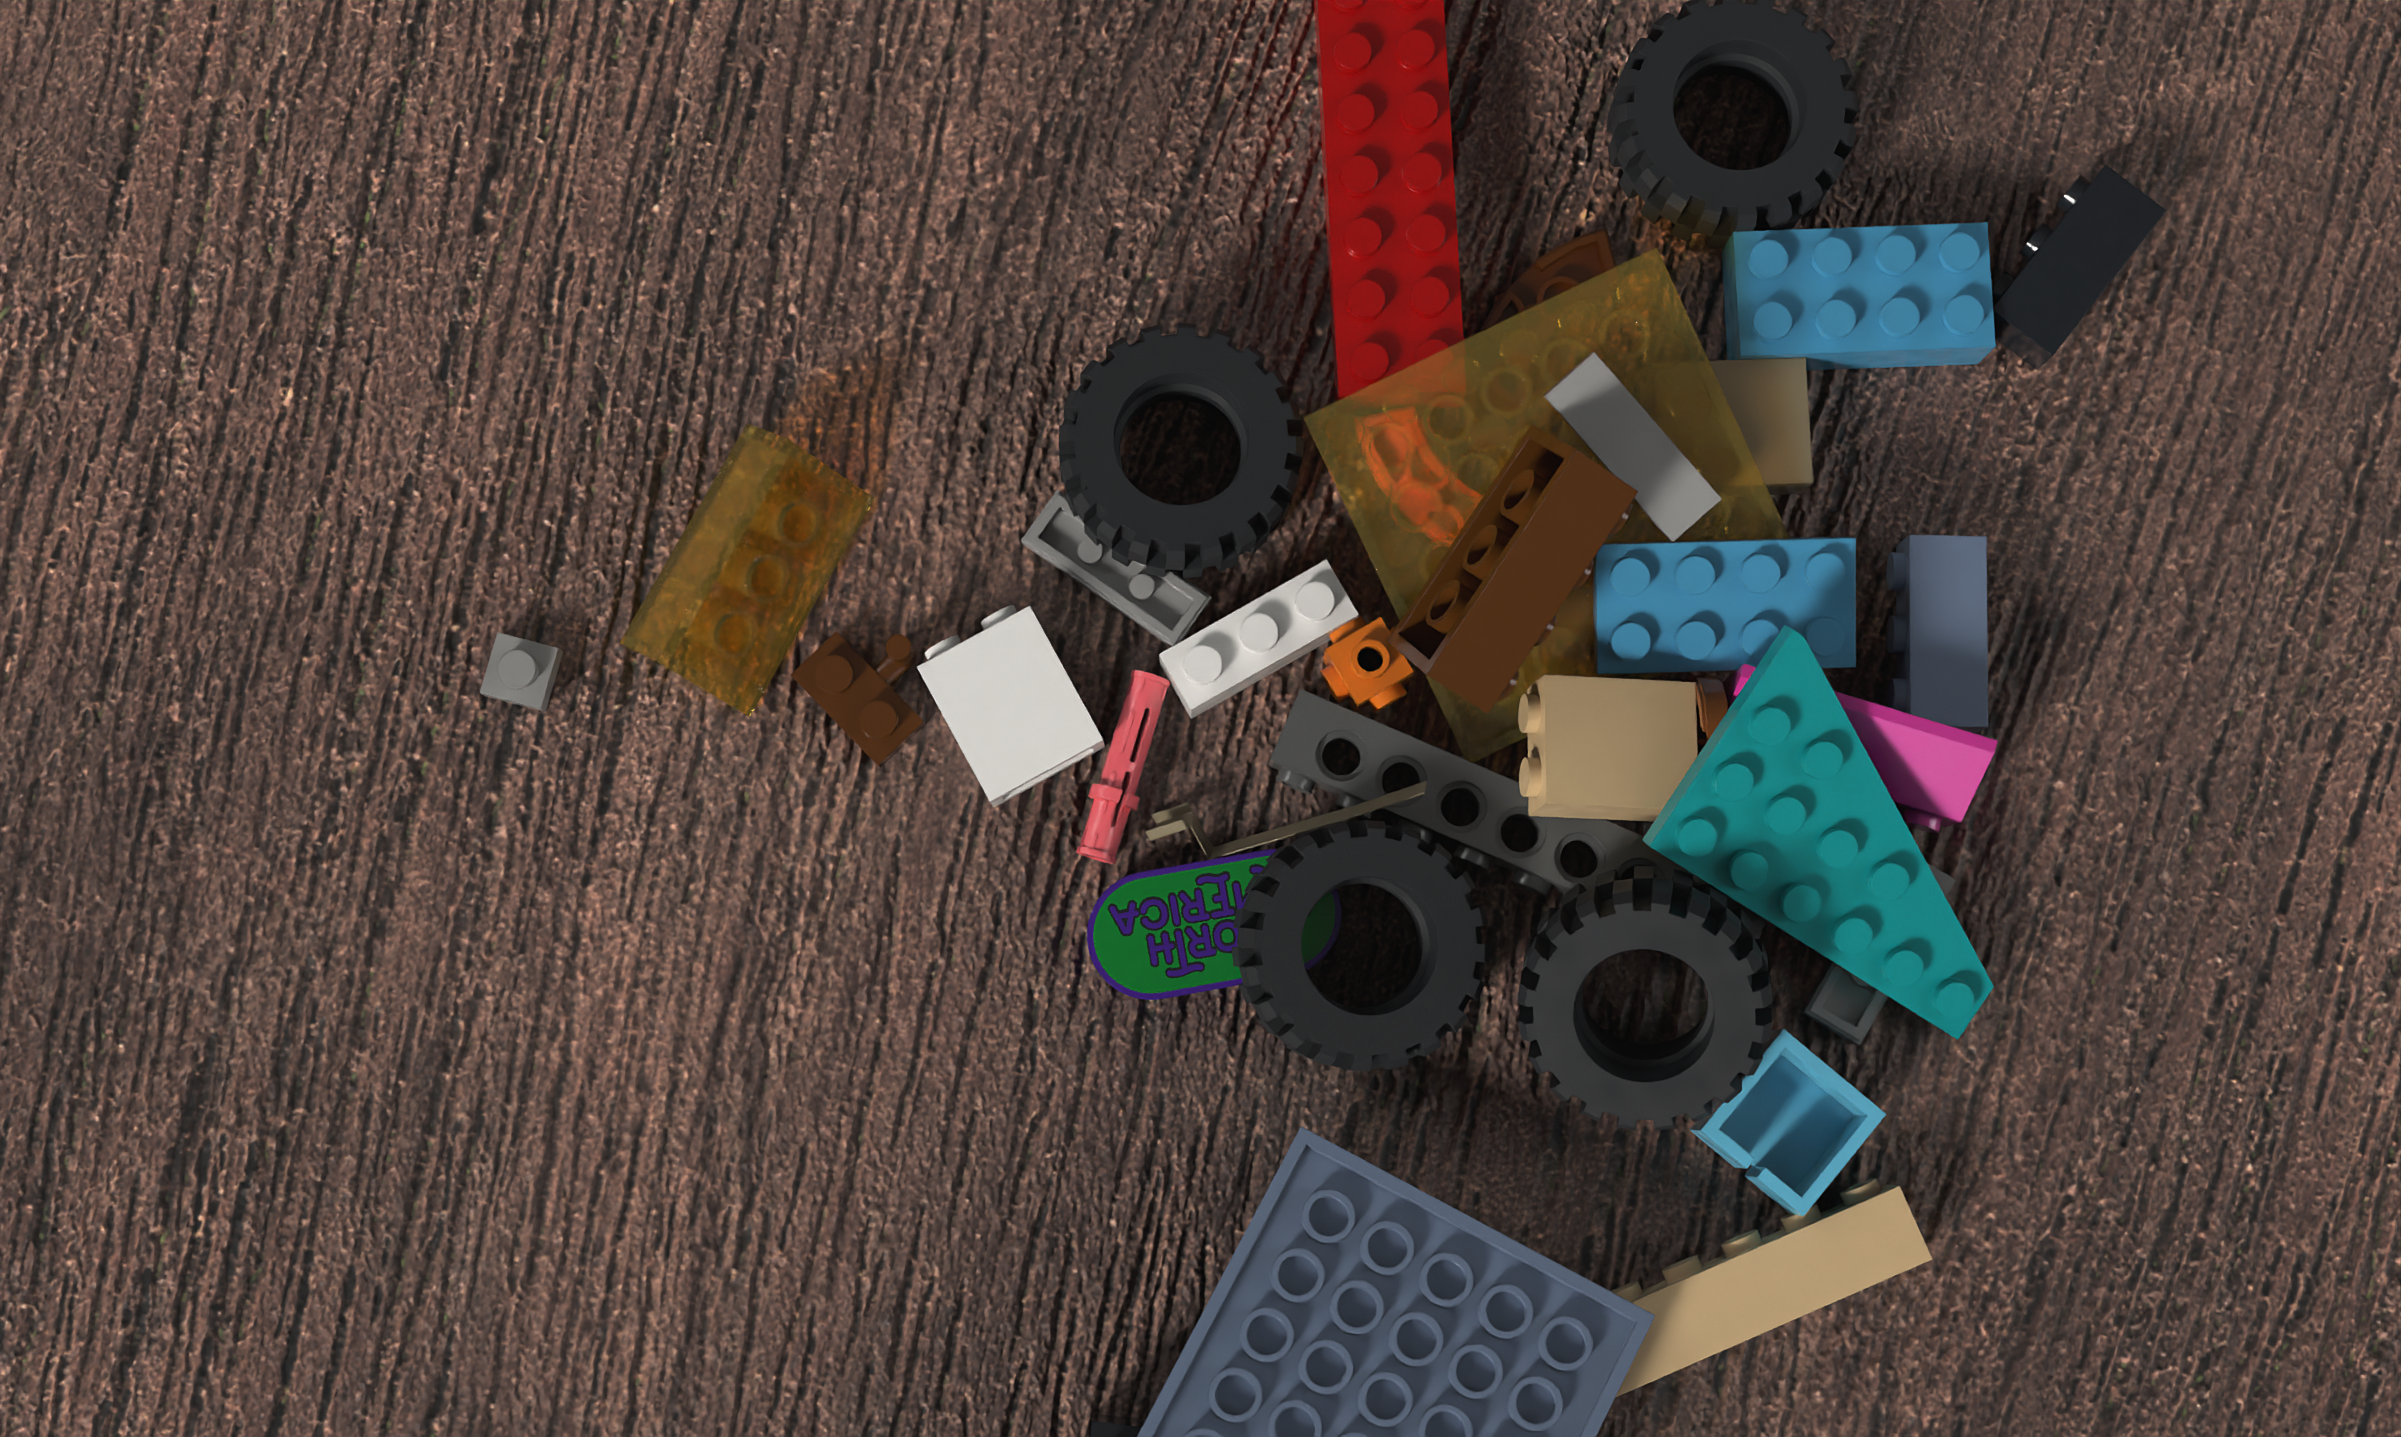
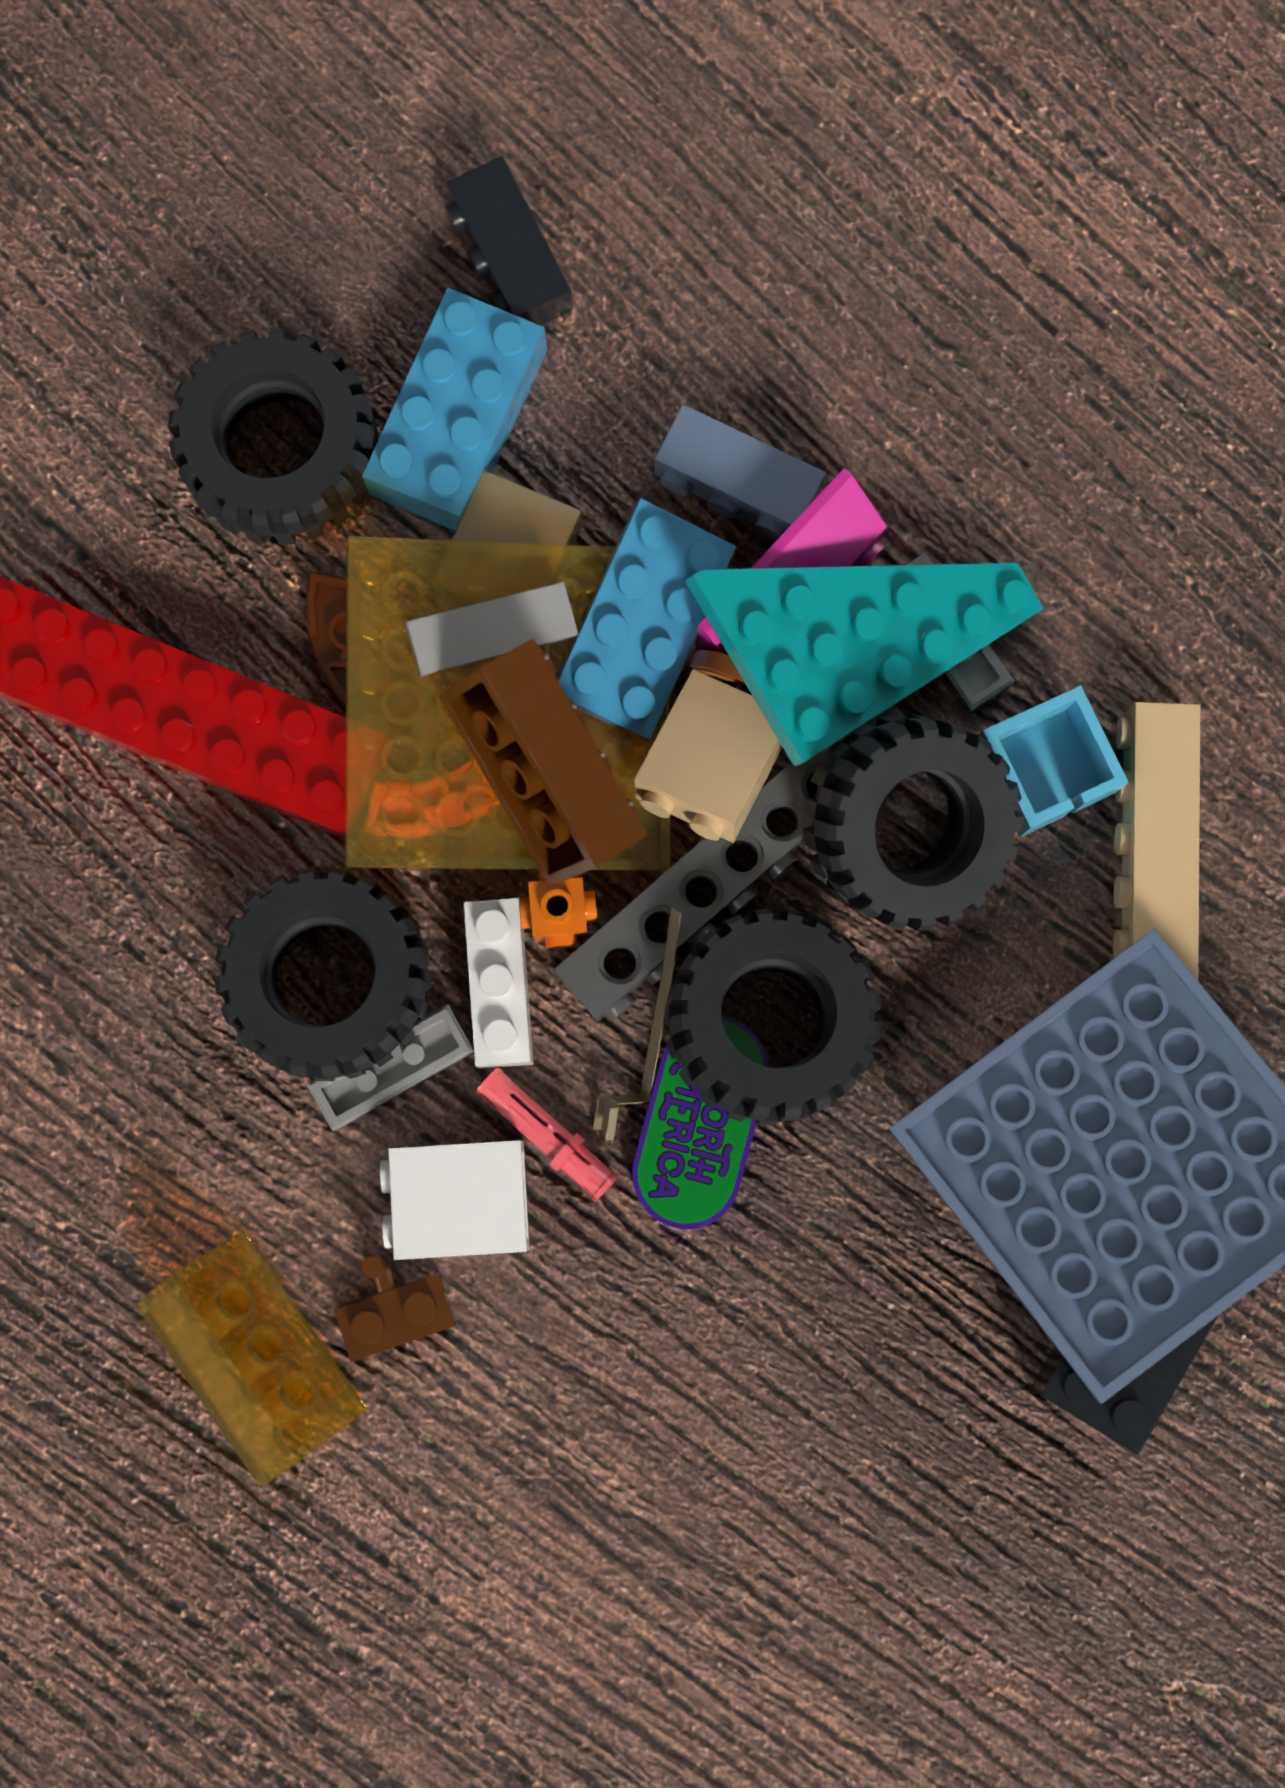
camera: 65 degrees left, 0 degrees up
(521, 672) = (244, 1577): light grey plate -> none

